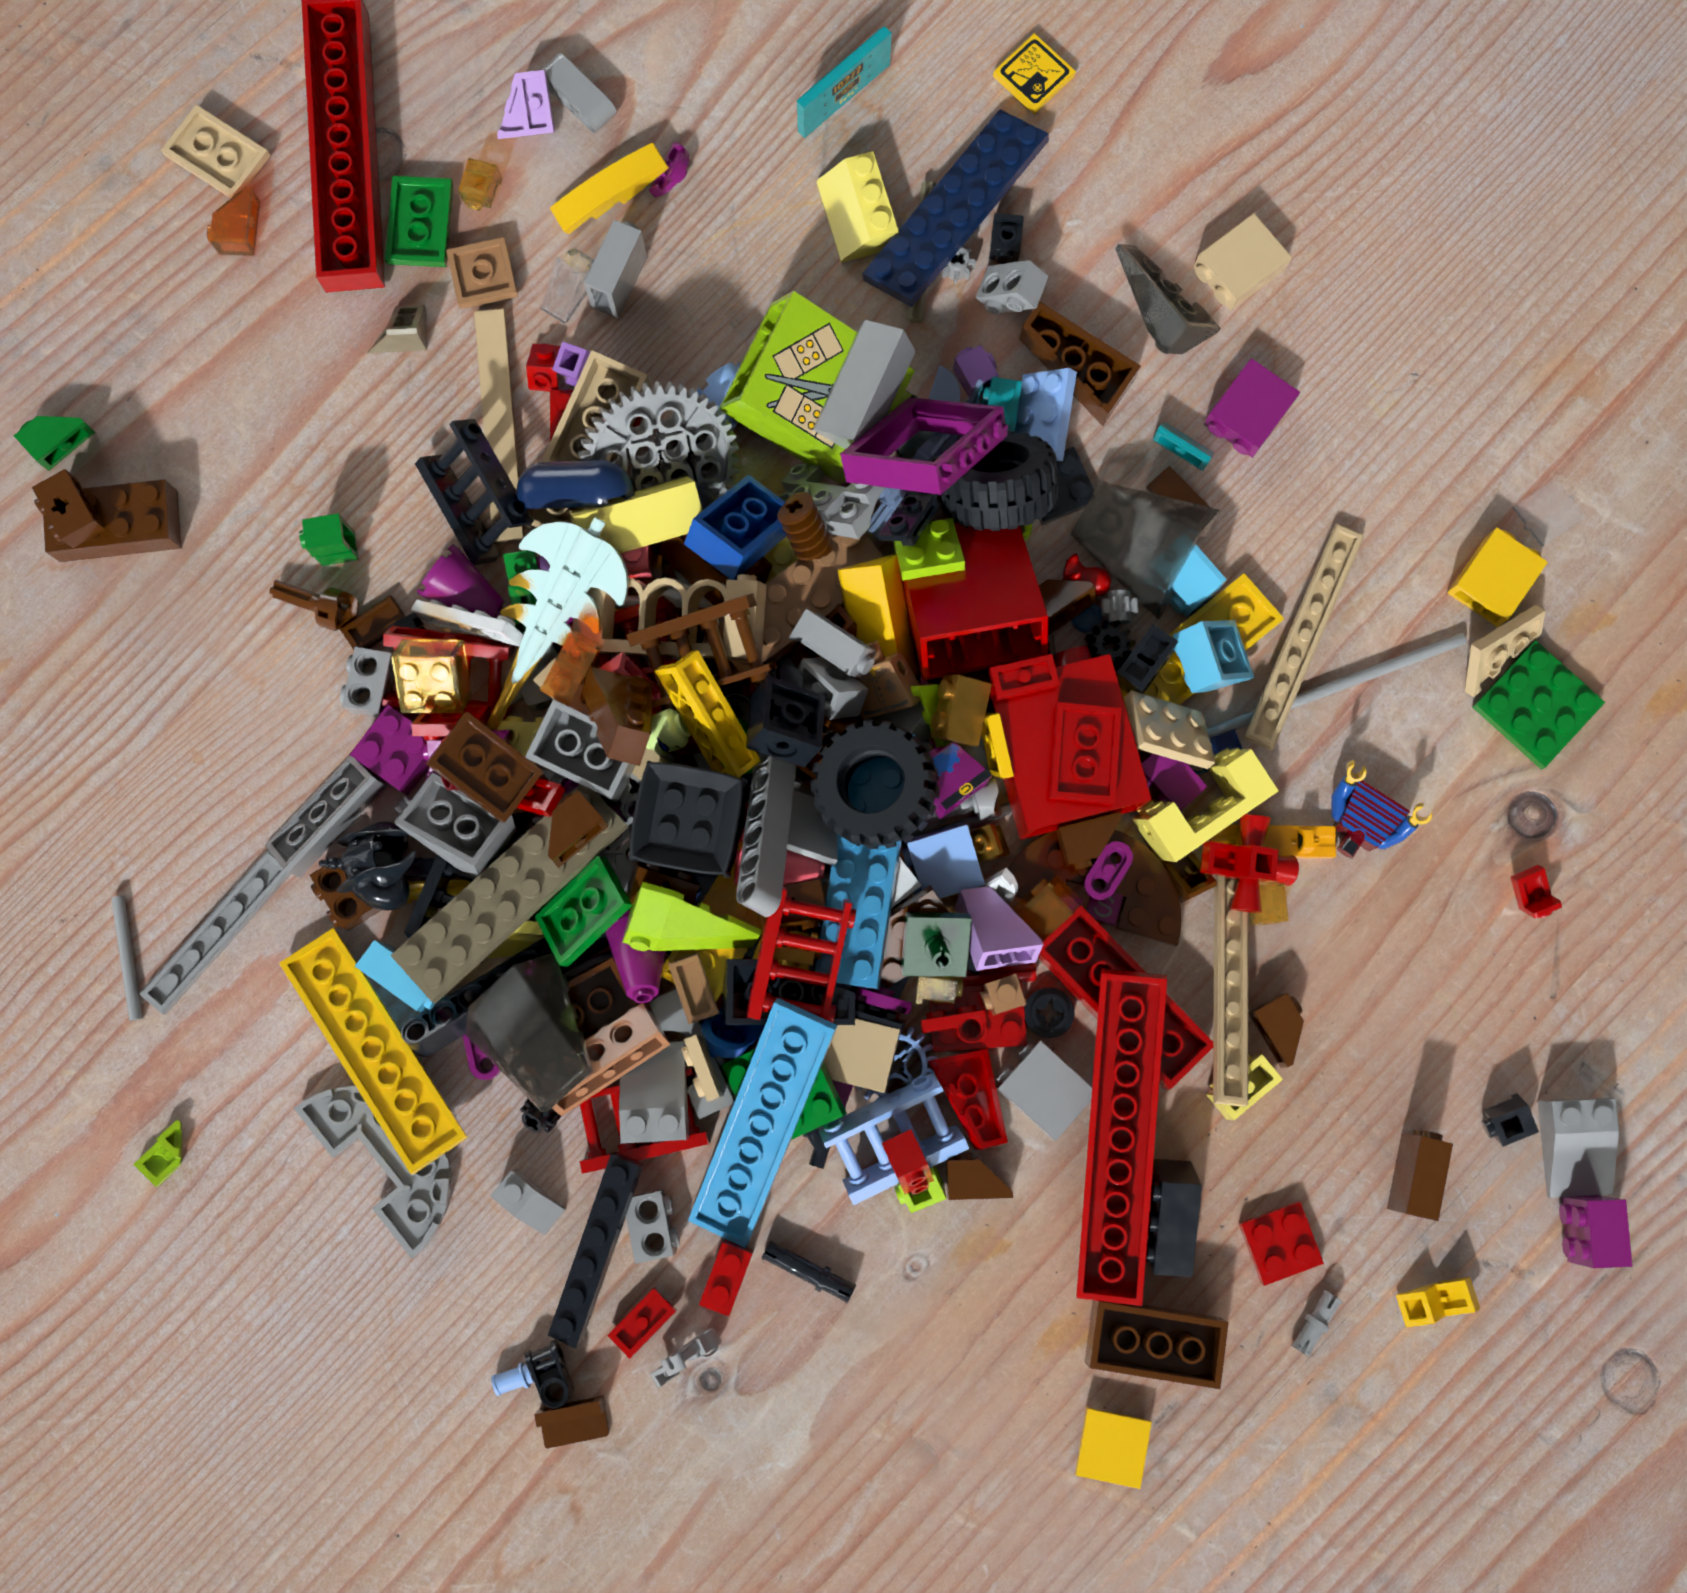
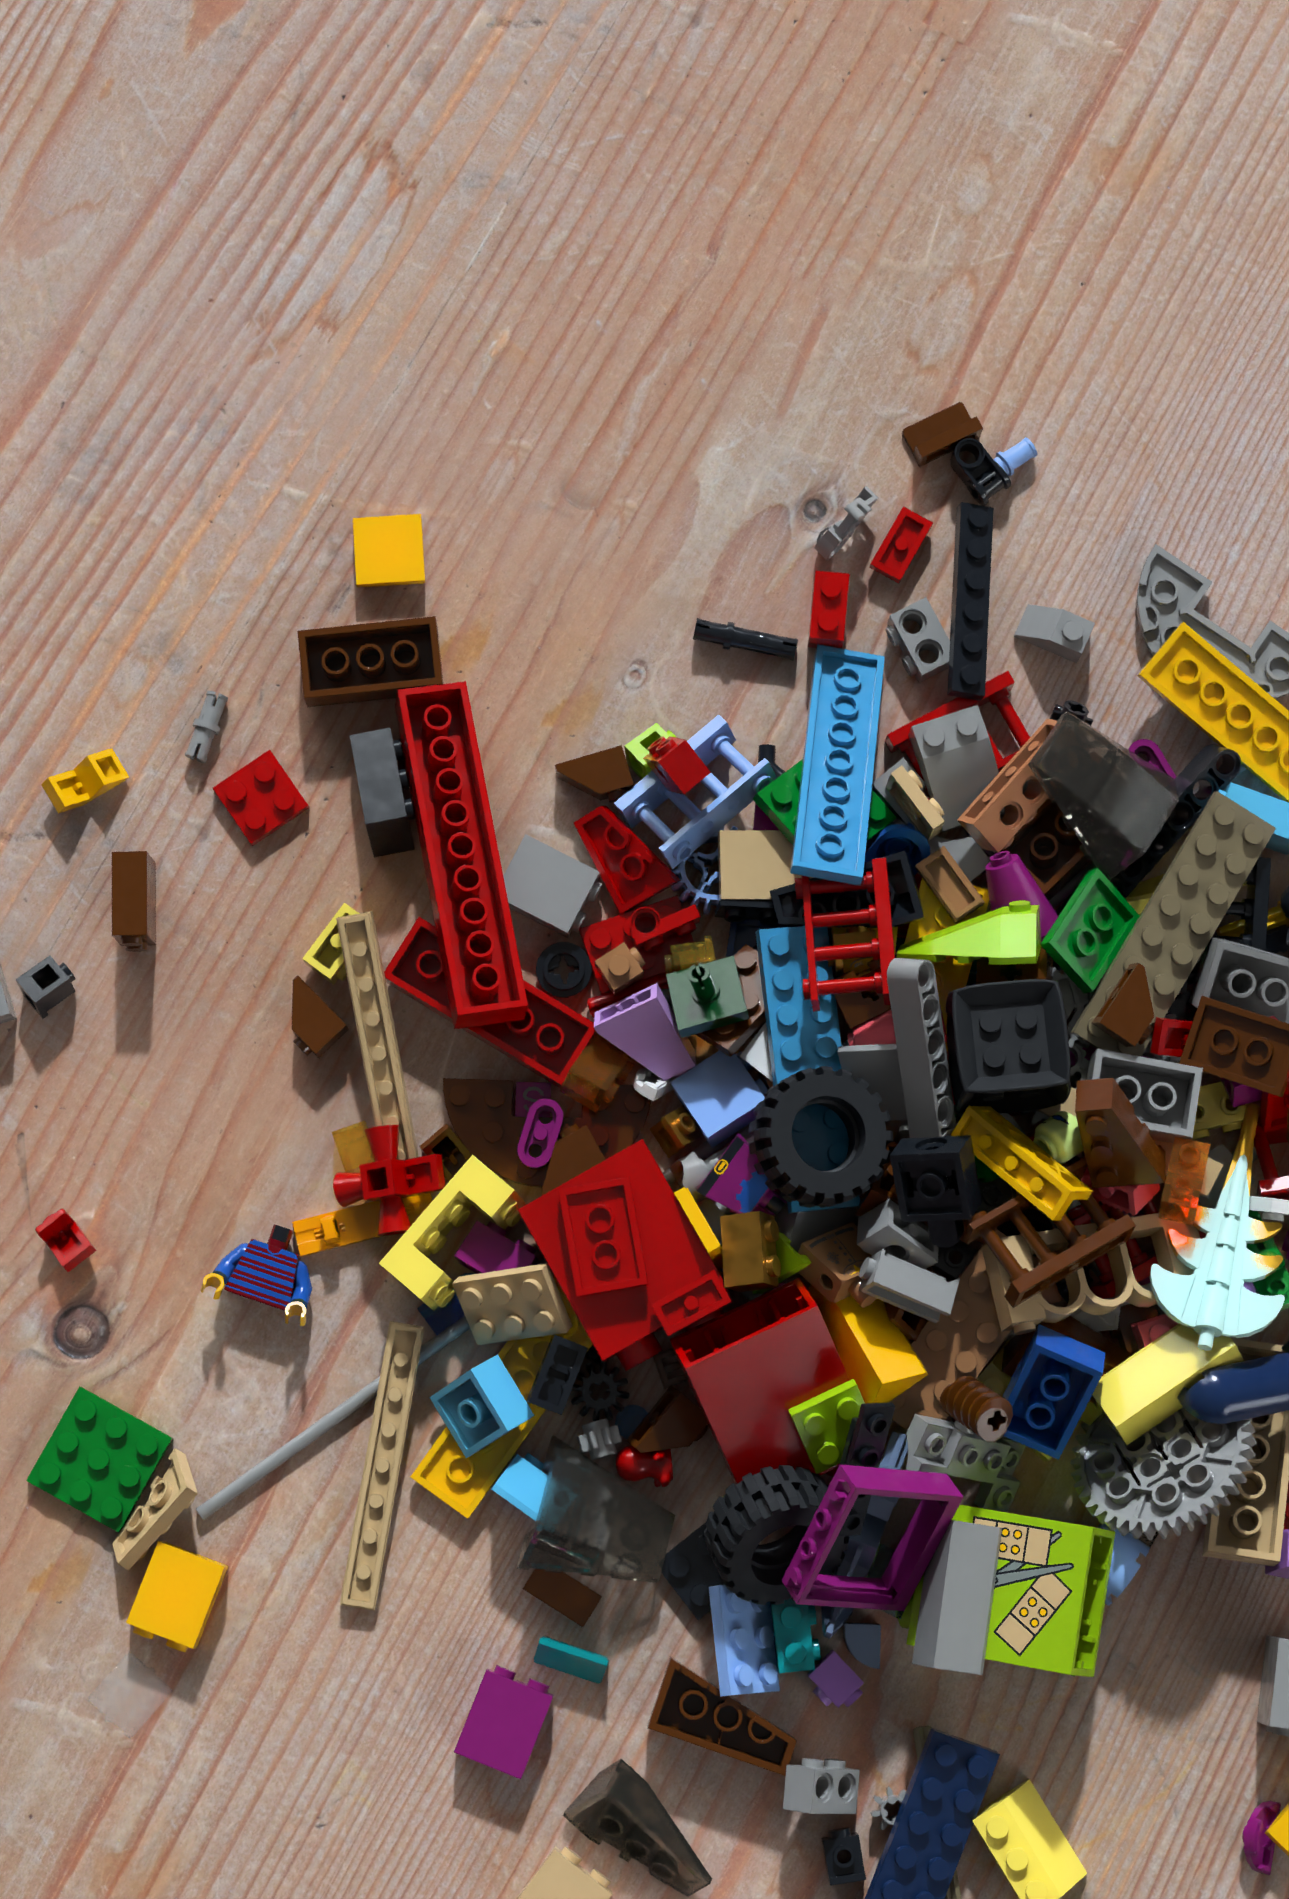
camera: 165 degrees right, 0 degrees up
(882, 998) = (741, 929): magenta plate -> none

